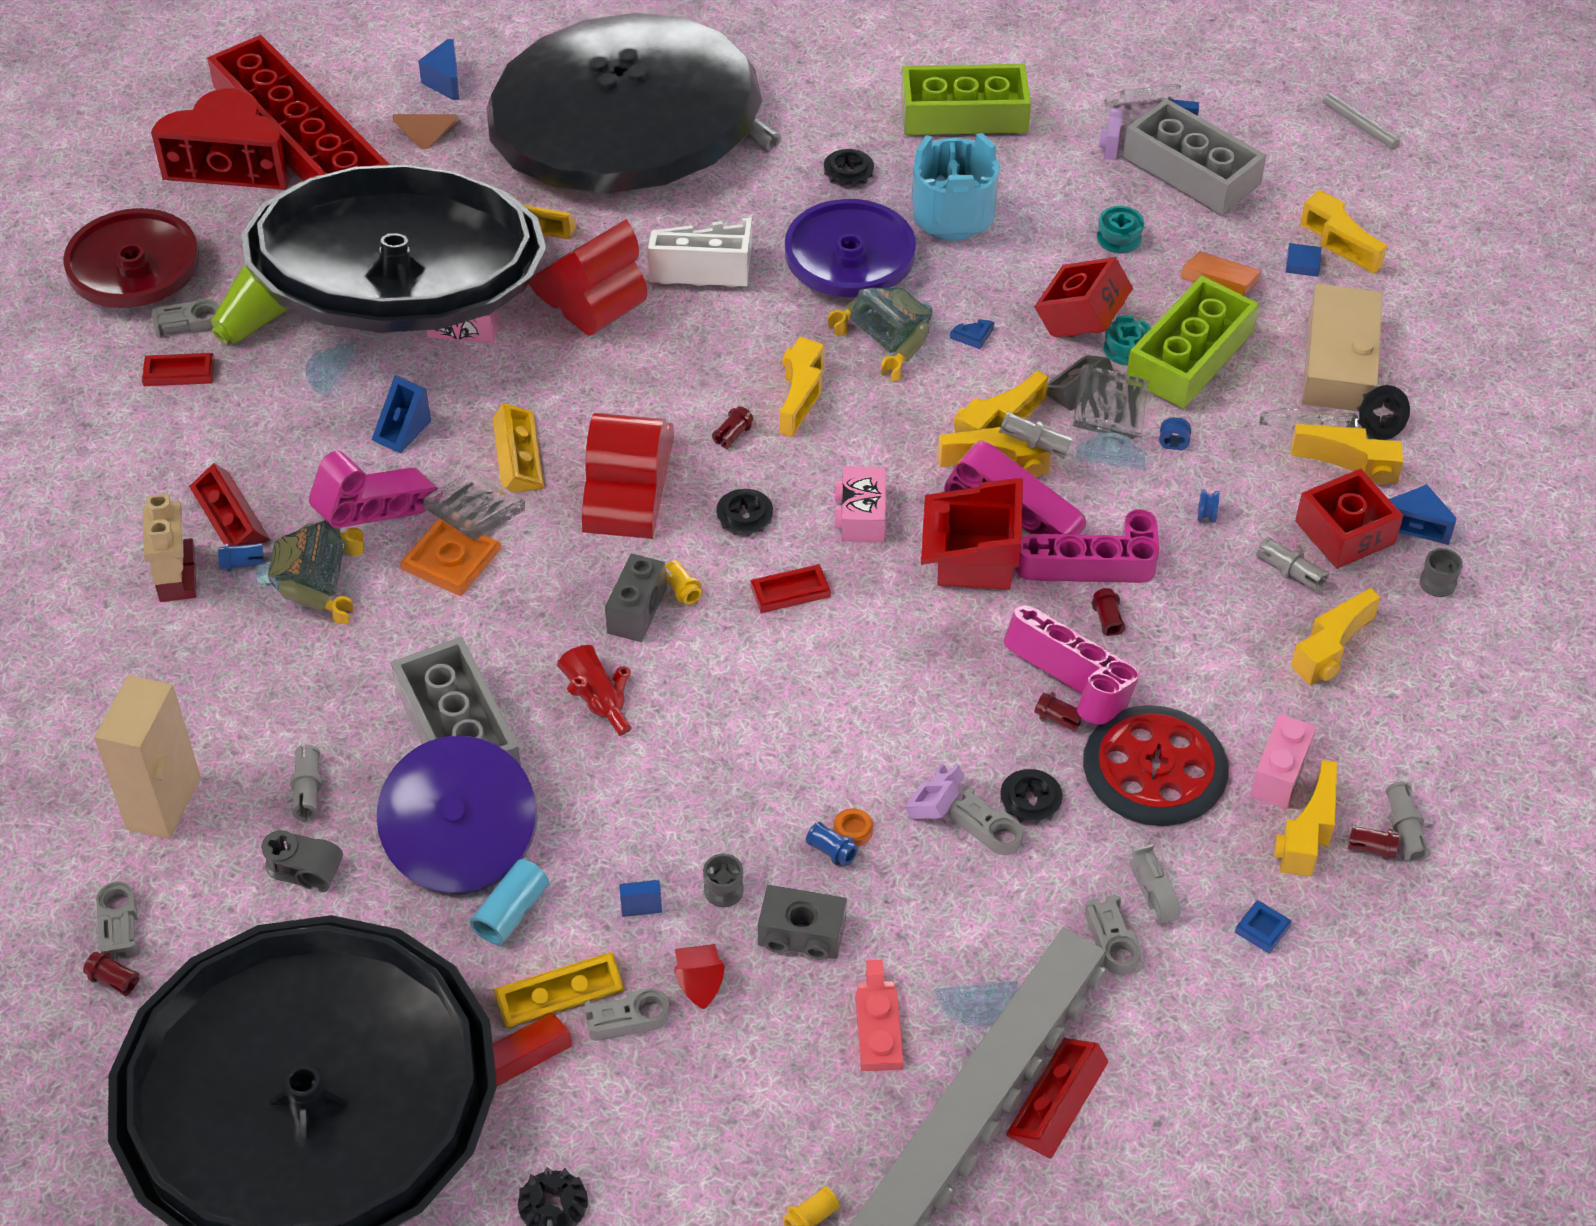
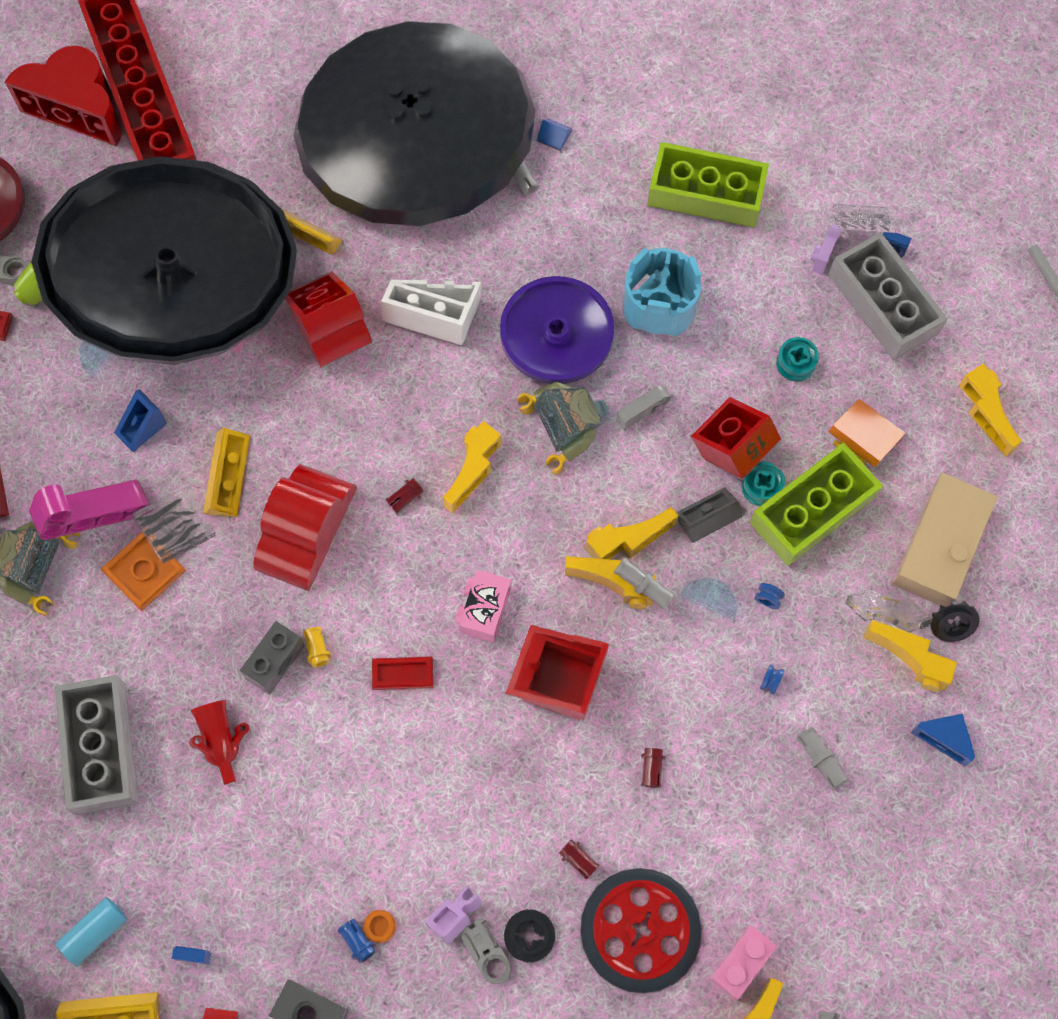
camera: 15 degrees right, 20 degrees up
(426, 128) = (245, 105): nougat slope -> none
(439, 70) = (275, 45): blue slope -> none
(456, 814) = (69, 844): dark purple dish -> none
(723, 880) = (254, 955): dark grey wheel -> none
(756, 504) = (379, 576): black gear -> none
(779, 92) = (553, 134): none -> blue slope
(855, 159) = (577, 225): black gear -> none
(969, 299) = (642, 407): none -> light grey piece
(974, 333) = (636, 440): blue tile -> none
(1041, 507) = (604, 624): dark pink beam -> none
(1074, 660) = (571, 778): dark pink beam -> none
(1094, 557) = (653, 703): dark pink beam -> none
(1110, 402) = (725, 550): clear tile -> none
(1303, 259) = (947, 428): blue tile -> none
(1322, 652) = (813, 861): yellow slope -> none
(1348, 518) = (884, 729): red brick -> none
(1441, 572) = (948, 797): dark grey wheel -> none

